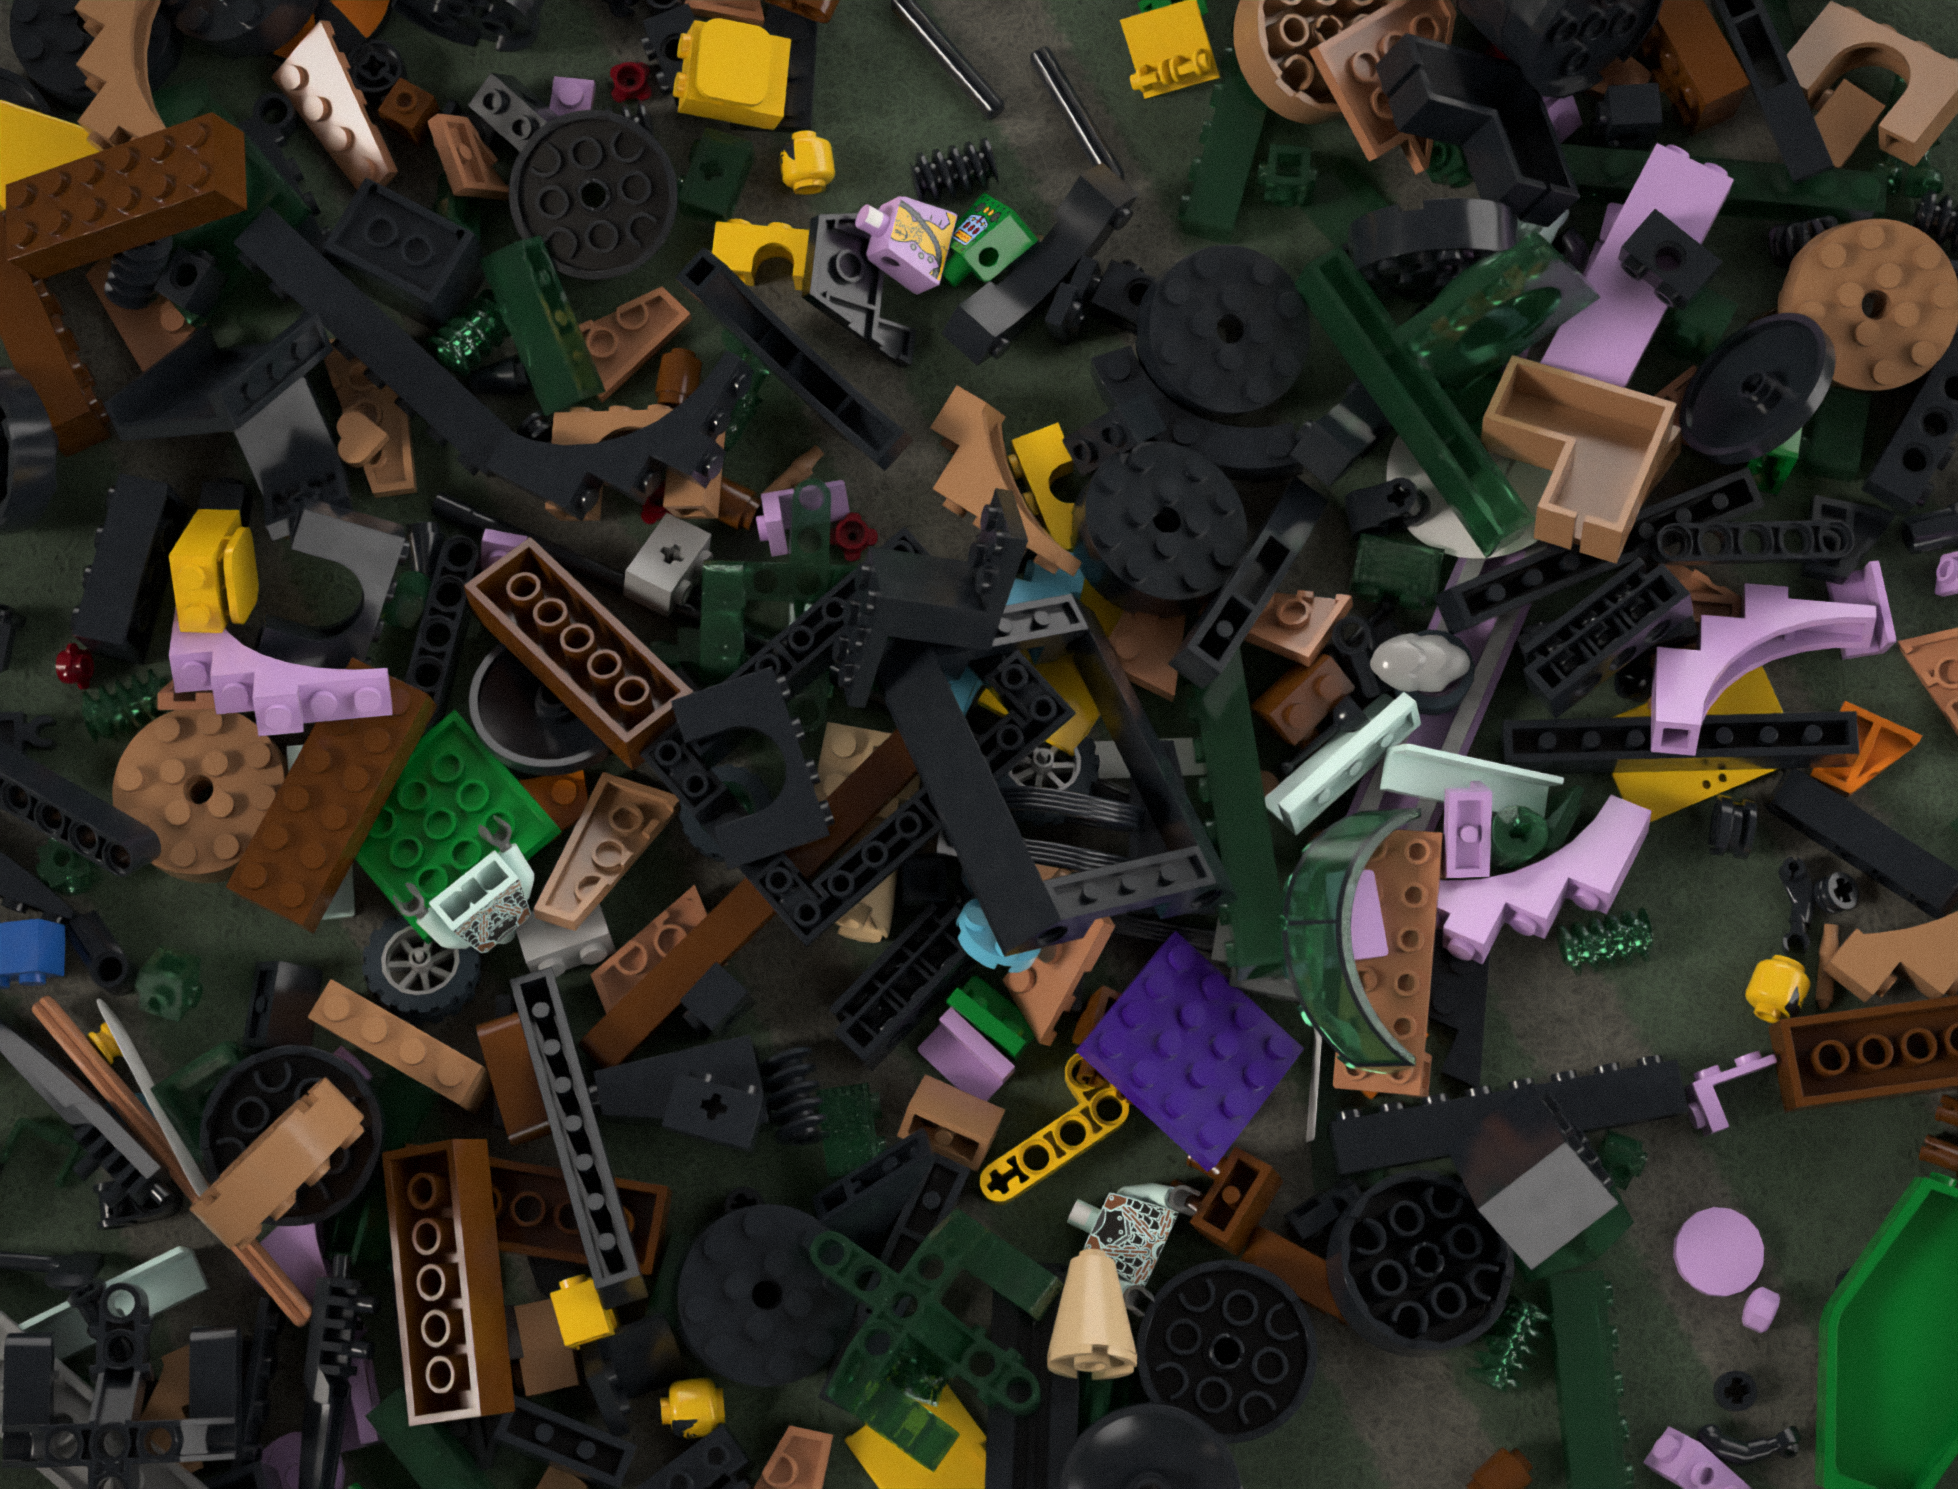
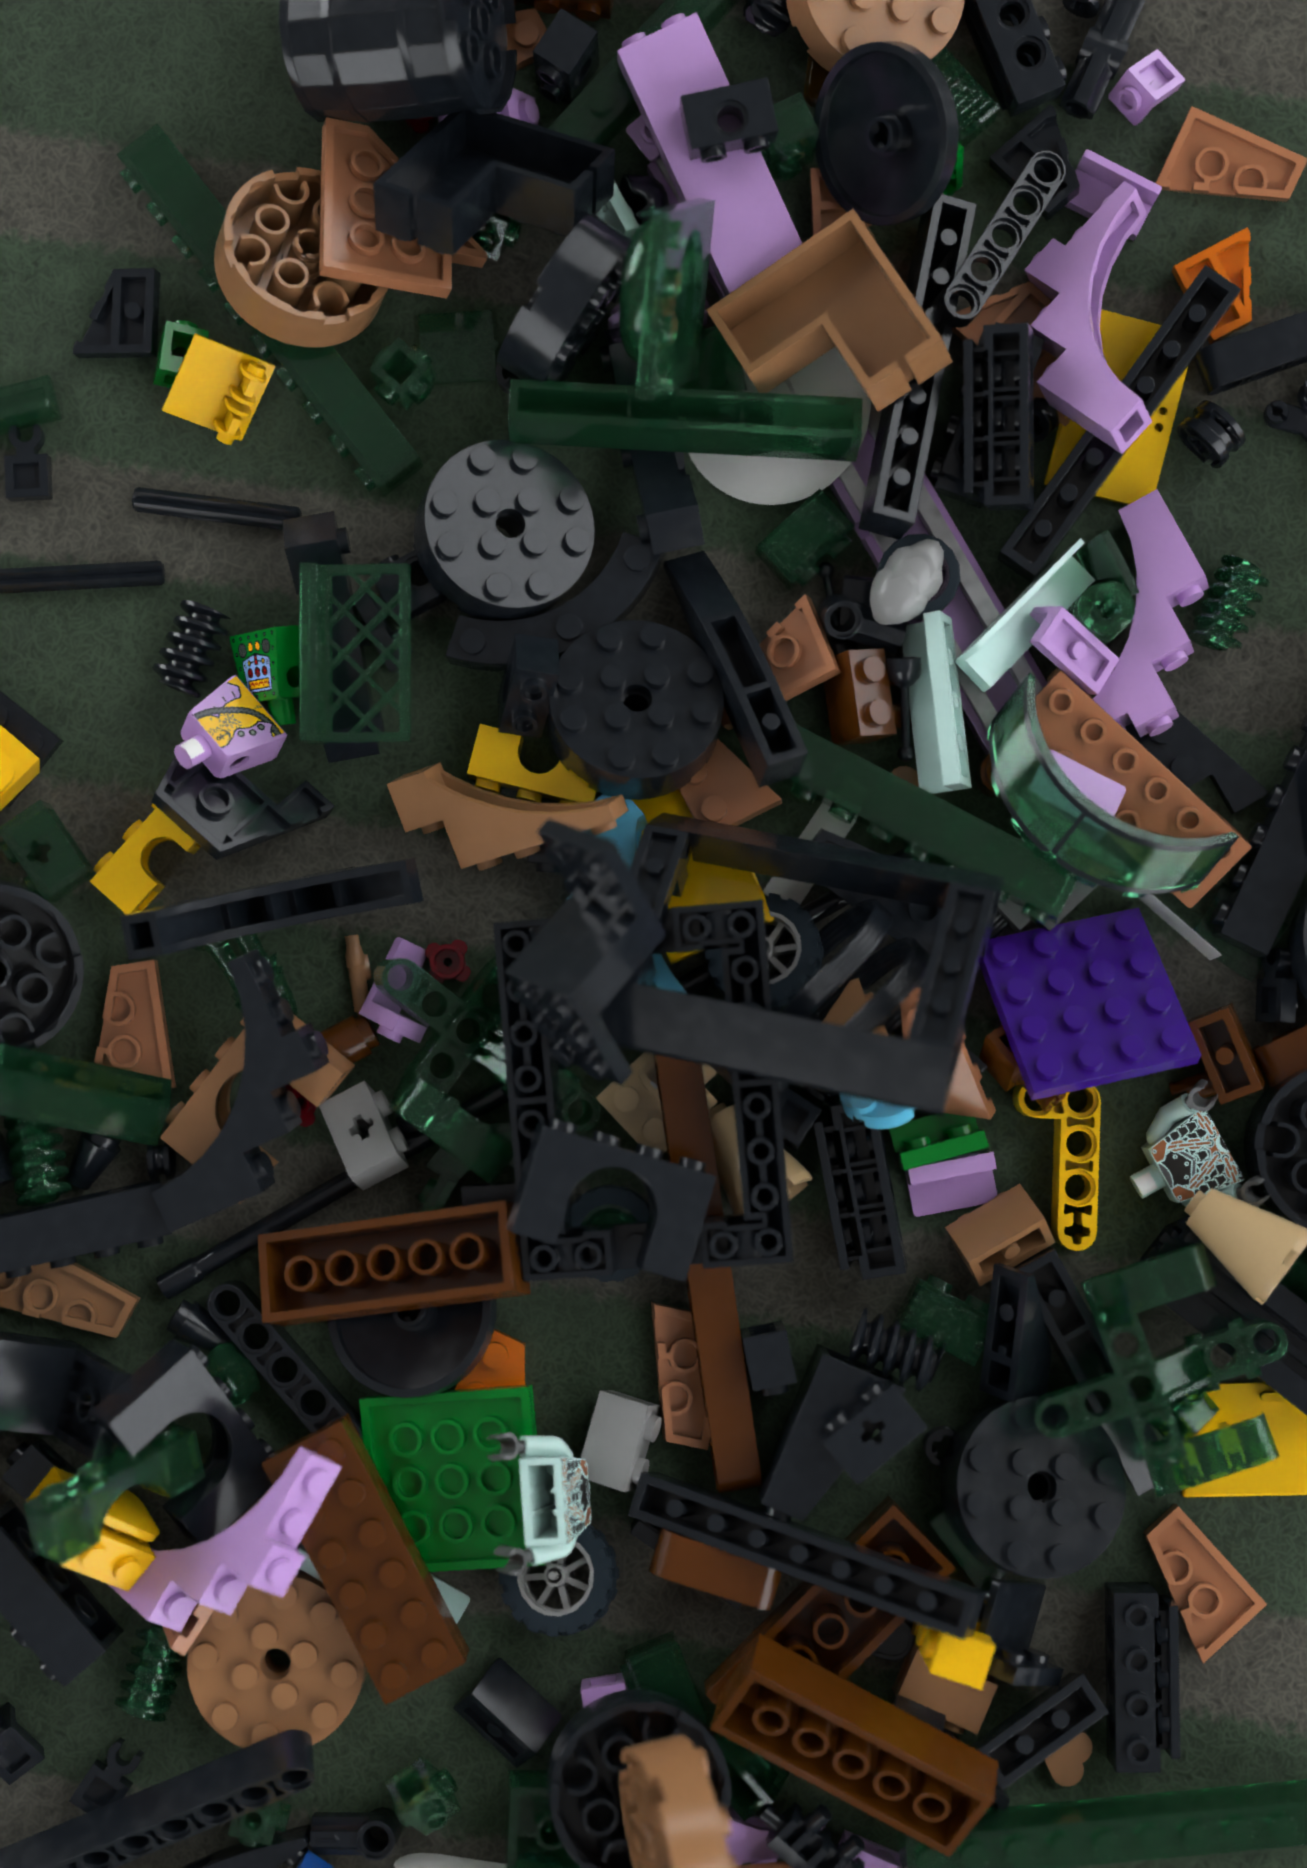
camera: 60 degrees left, 10 degrees up
(75, 666) = (85, 1693): dark red plate -> none
(214, 531) = (71, 1513): none -> clear green arch
(359, 439) = (60, 1317): medium nougat tile -> none
(402, 1046) = (574, 1667): medium nougat arch -> none
(496, 545) = (244, 1265): lavender plate -> none
(605, 843) = (567, 1355): medium nougat wing -> none
(677, 377) = (205, 1011): reddish brown brick -> none
(693, 1407) = (1077, 1603): yellow head -> none
(807, 163) = (90, 765): yellow head -> none
(1017, 253) = (317, 661): none -> clear green fence
(1386, 508) = (745, 516): black piece -> none

